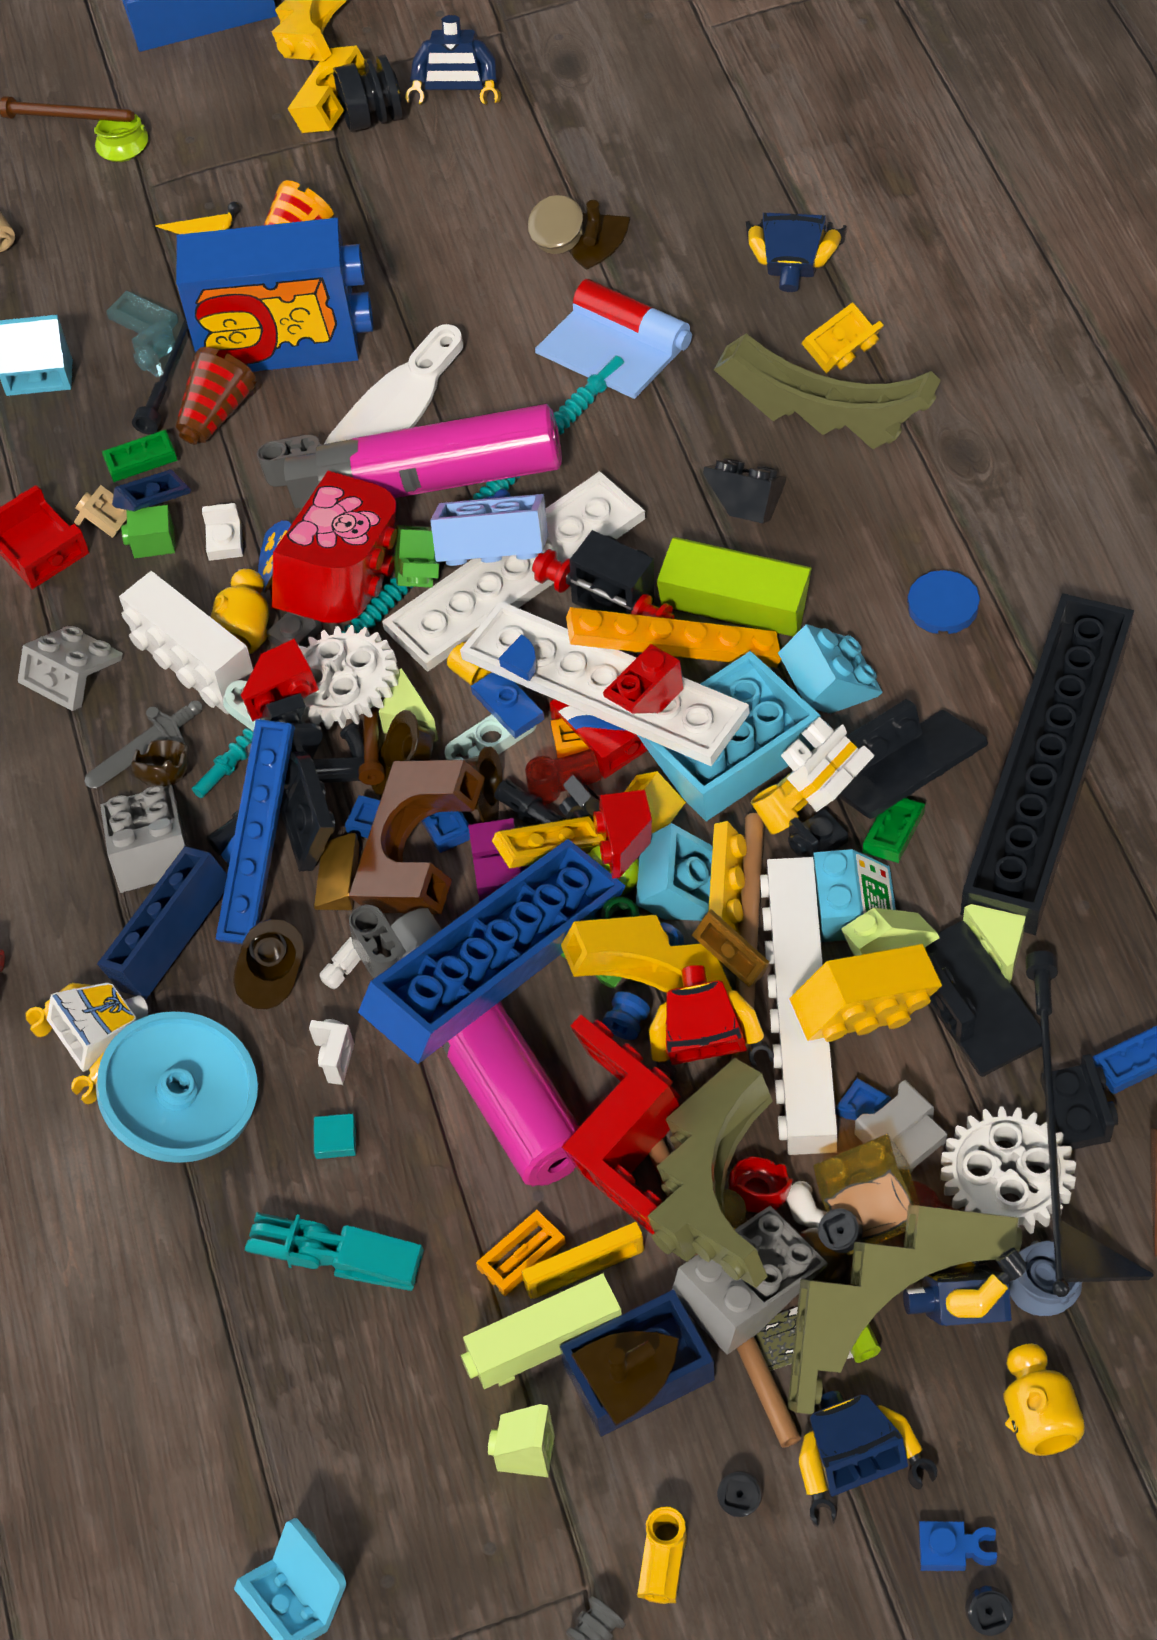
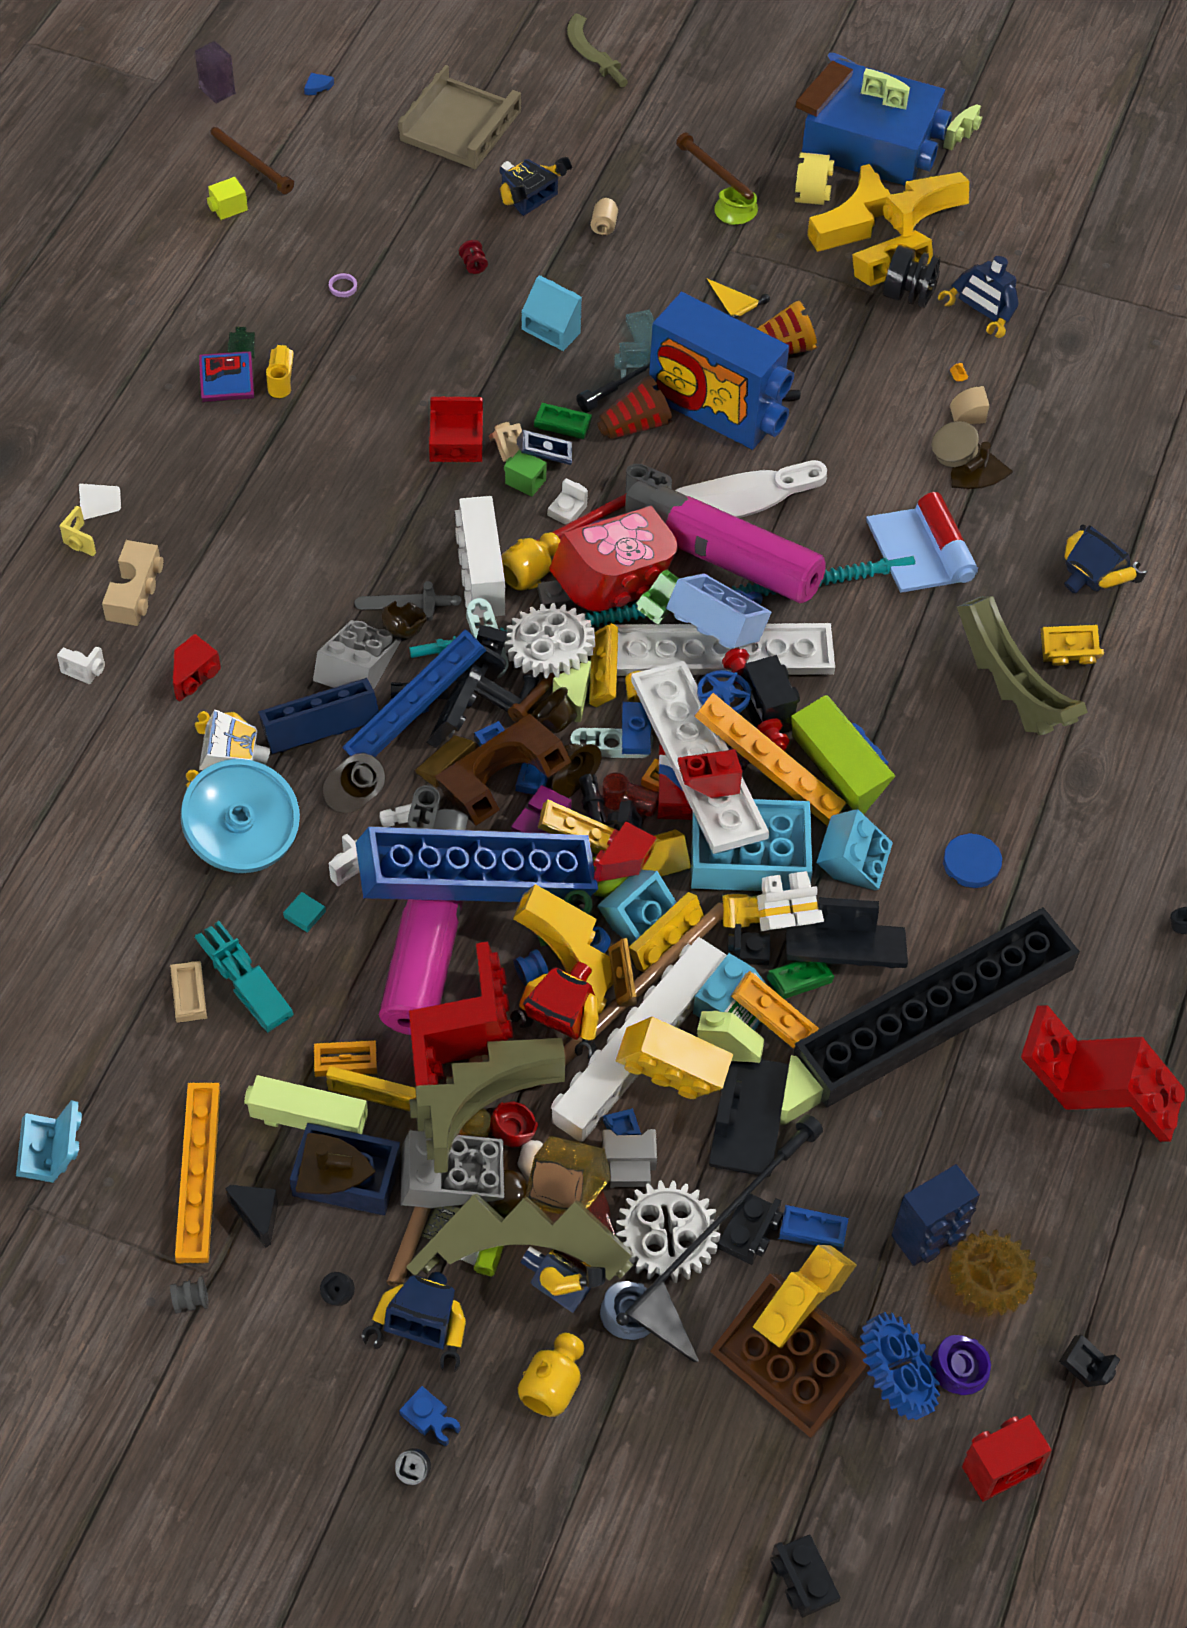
camera: 30 degrees right, 0 degrees up
(61, 662) = (403, 516): light grey bracket -> none
(181, 61) = (813, 178): none -> light yellow brick
(254, 73) = (853, 218): none -> yellow arch
(259, 529) = (592, 516): none -> red piece
(276, 676) = (506, 612): red slope -> none
(287, 1312) = (188, 991): none -> tan tile
(421, 669) = (604, 666): none -> yellow tile
(481, 1493) = (197, 1173): none -> light orange plate
(491, 157) = (958, 372): none -> light orange rock
(520, 658) = (659, 704): blue tile -> none
(523, 1441) = (244, 1163): yellowish green slope -> none
(535, 180) = (970, 406): none -> tan brick
(567, 599) = (725, 689): none -> blue wheel
(579, 1481) = (256, 1208): none -> black slope
(662, 1558) = (259, 1289): yellow piece -> none
(743, 491) = (911, 699): black slope -> none
(840, 1230) = (527, 1183): black tile -> none
(906, 878) = (772, 1010): none -> light orange tile

